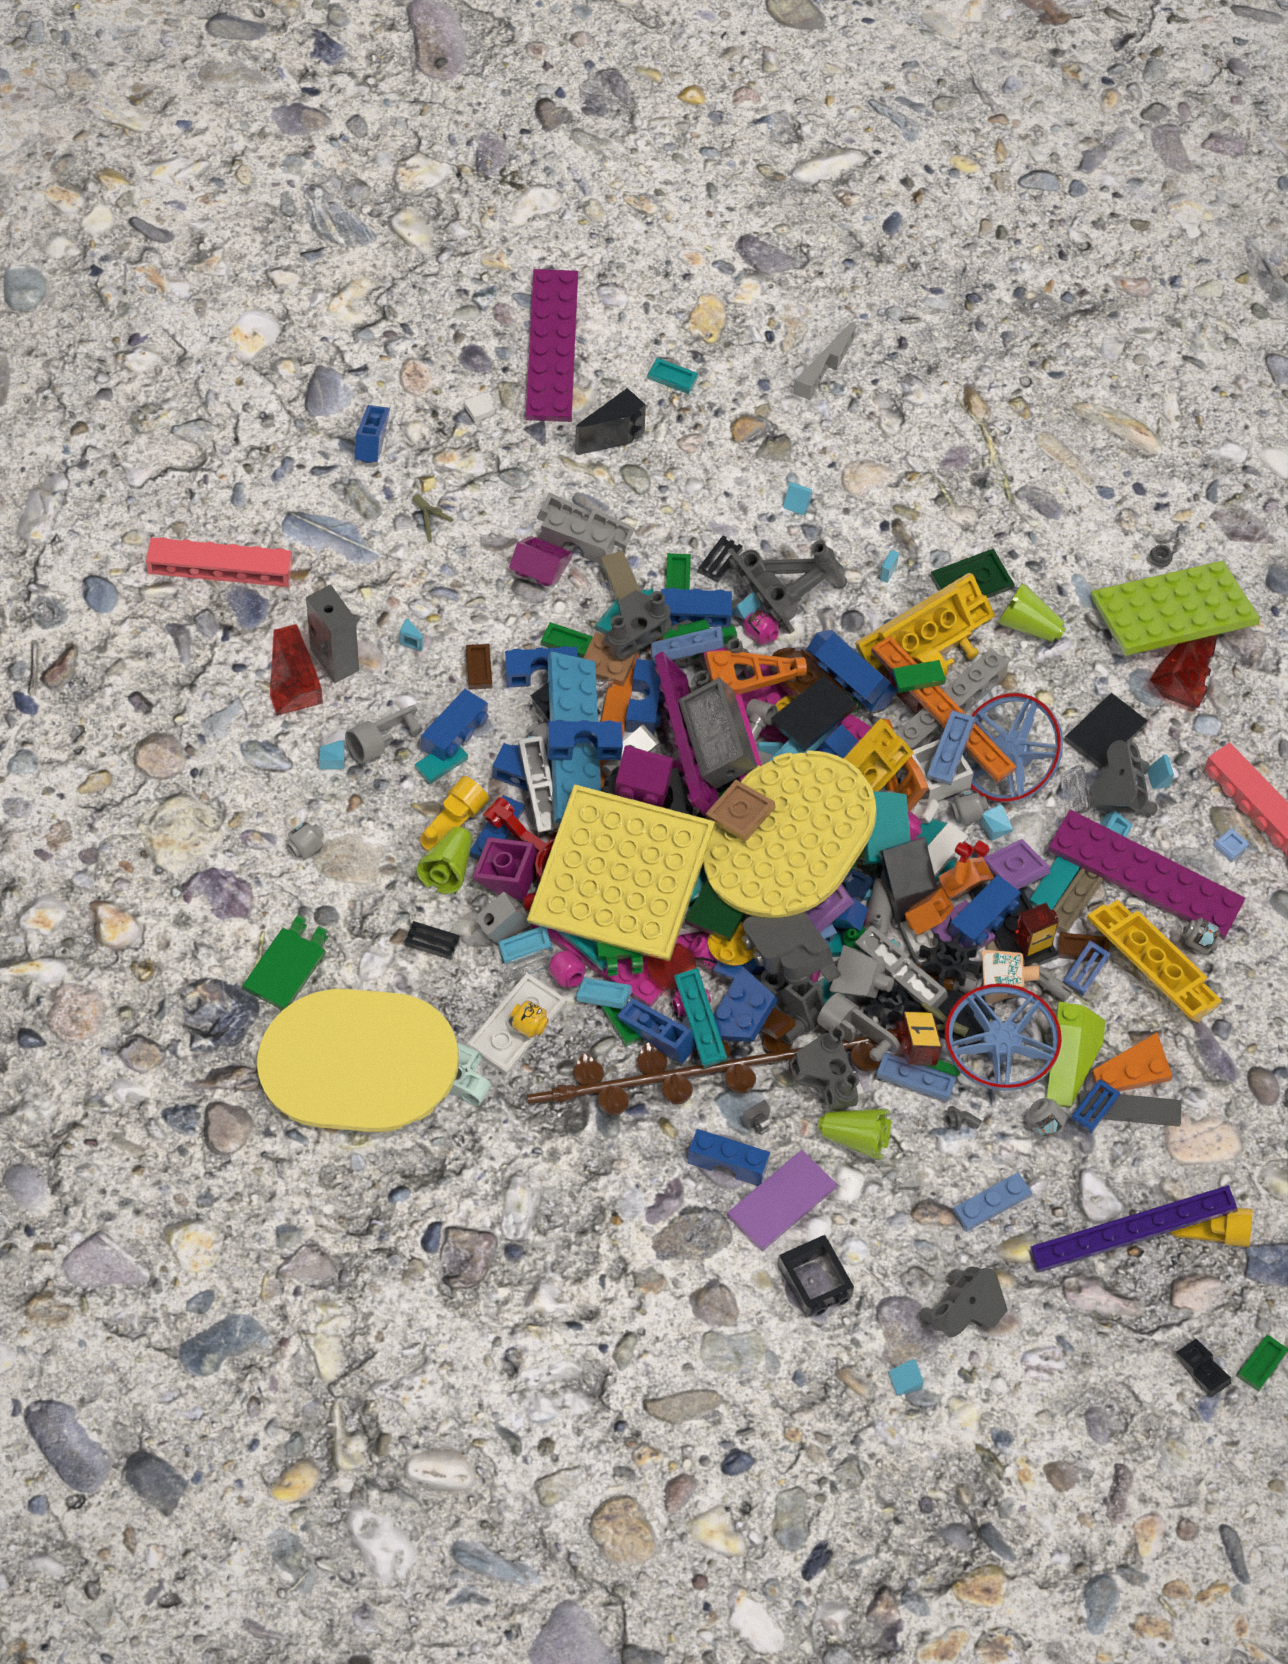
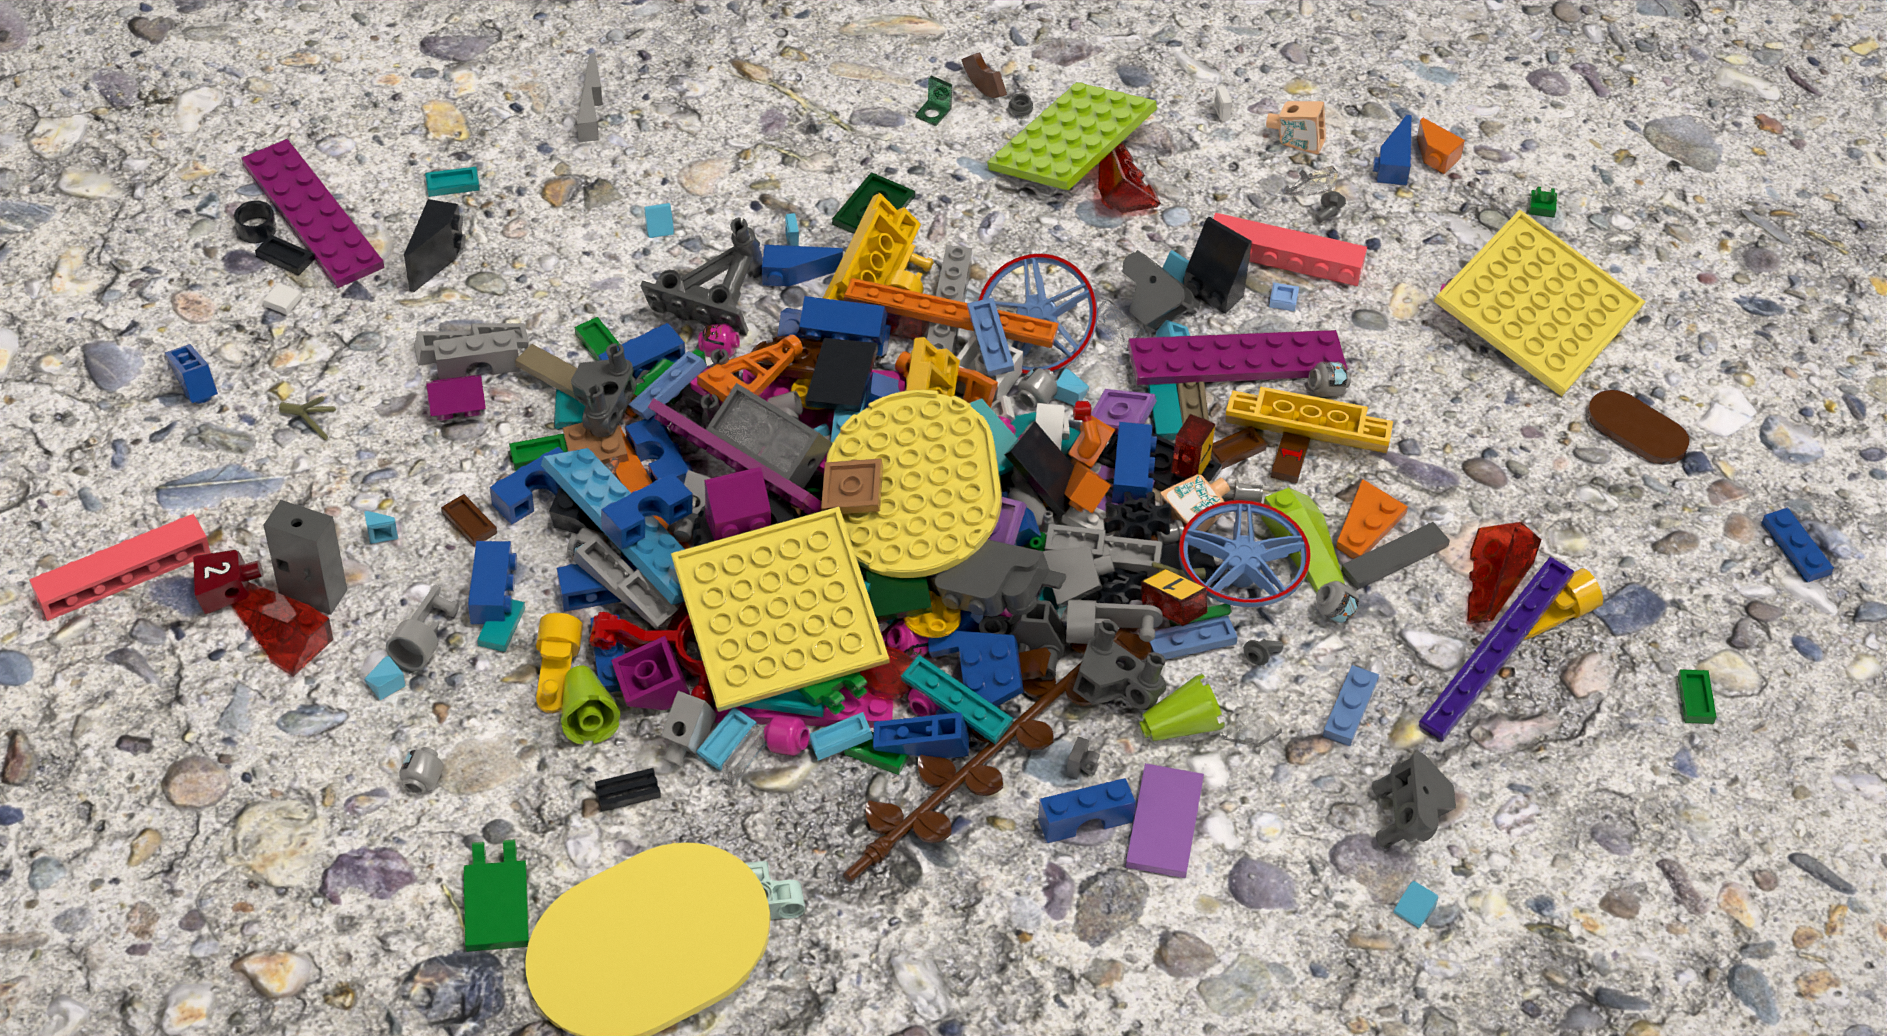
camera: 35 degrees left, 10 degrees down
(276, 613) = (223, 579): none -> dark red torso
(496, 1038) = (776, 815): white tile -> none
(500, 319) = (252, 210): none -> black piece
(507, 370) = (284, 255): none -> black tile
(529, 1019) = (792, 798): yellow head -> none
(722, 542) = (628, 292): black tile -> none
(747, 606) = (691, 328): medium azure slope -> none
(804, 1254) = (1247, 886): black window -> none
(869, 595) = (796, 264): none -> blue slope
(919, 676) = (909, 294): green tile -> none
(1032, 616) = (954, 204): lime cone -> none
(1075, 985) = (1247, 479): blue tile -> none
(1084, 1122) = (1369, 586): blue tile -> none
(1098, 515) = (938, 99): none -> clear green bracket
(1104, 725) = (1101, 261): black tile -> none
(1117, 981) = (1290, 457): none -> reddish brown tile
(1149, 514) = (983, 77): none -> reddish brown tile
(1186, 792) = (1218, 266): none -> black slope
(1202, 1368) = (1660, 735): black slope -> none
(1208, 1162) = (1500, 562): none -> clear red wedge

